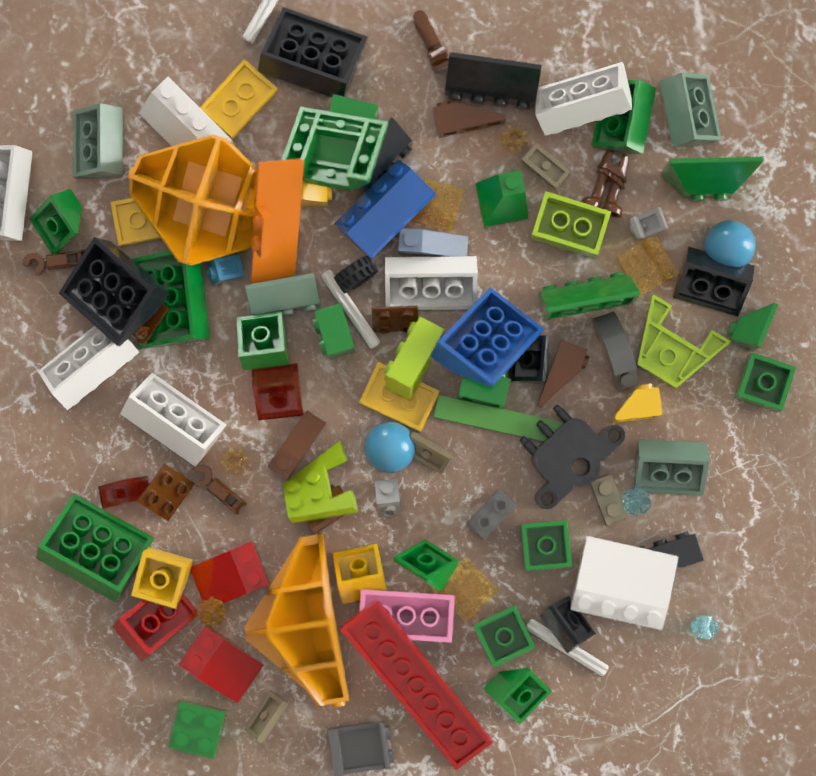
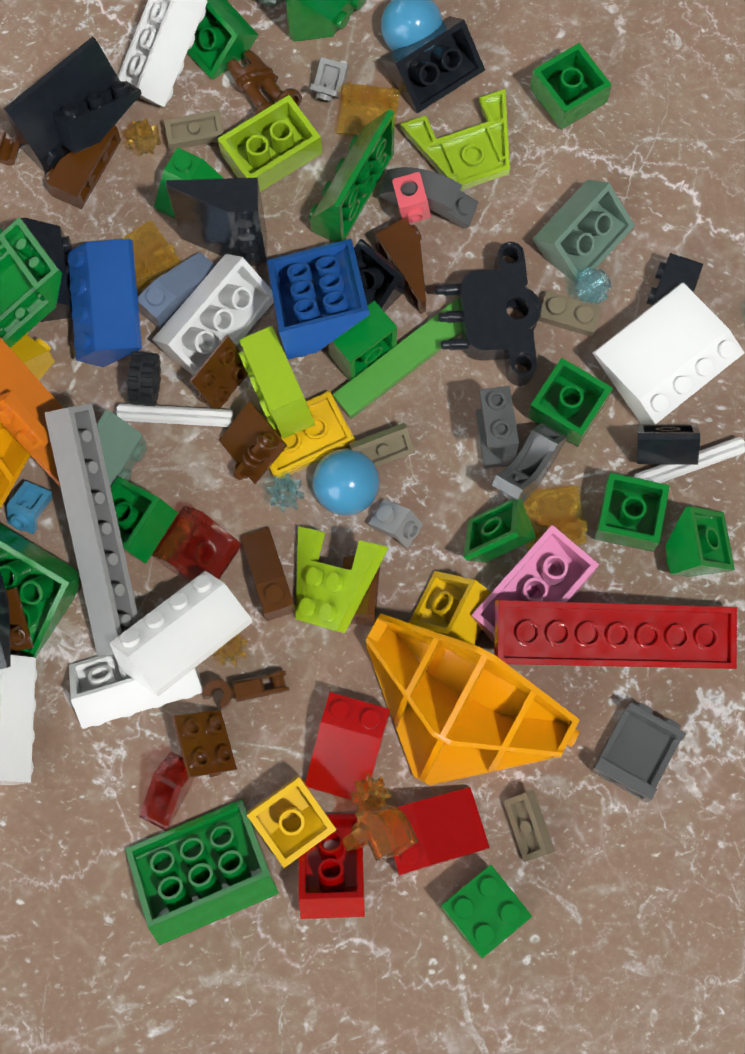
camera: 50 degrees left, 10 degrees down
(194, 636) = (383, 830): none -> clear orange brick
(216, 428) = (180, 633): none -> white slope
(235, 328) = (92, 523): none -> light grey brick
(334, 331) = (183, 441): green brick -> none
(356, 422) = (287, 484): none -> clear light blue gear
(366, 373) = (252, 444): none -> reddish brown hinge
(486, 551) = (531, 463): none -> dark grey arch
(494, 248) = (221, 216): none -> black slope
(496, 102) = (91, 119): none -> black slope
(600, 351) = (413, 207): none -> coral bracket
(640, 405) = (501, 209): yellow slope -> none
(752, 328) = (510, 57): green slope -> none

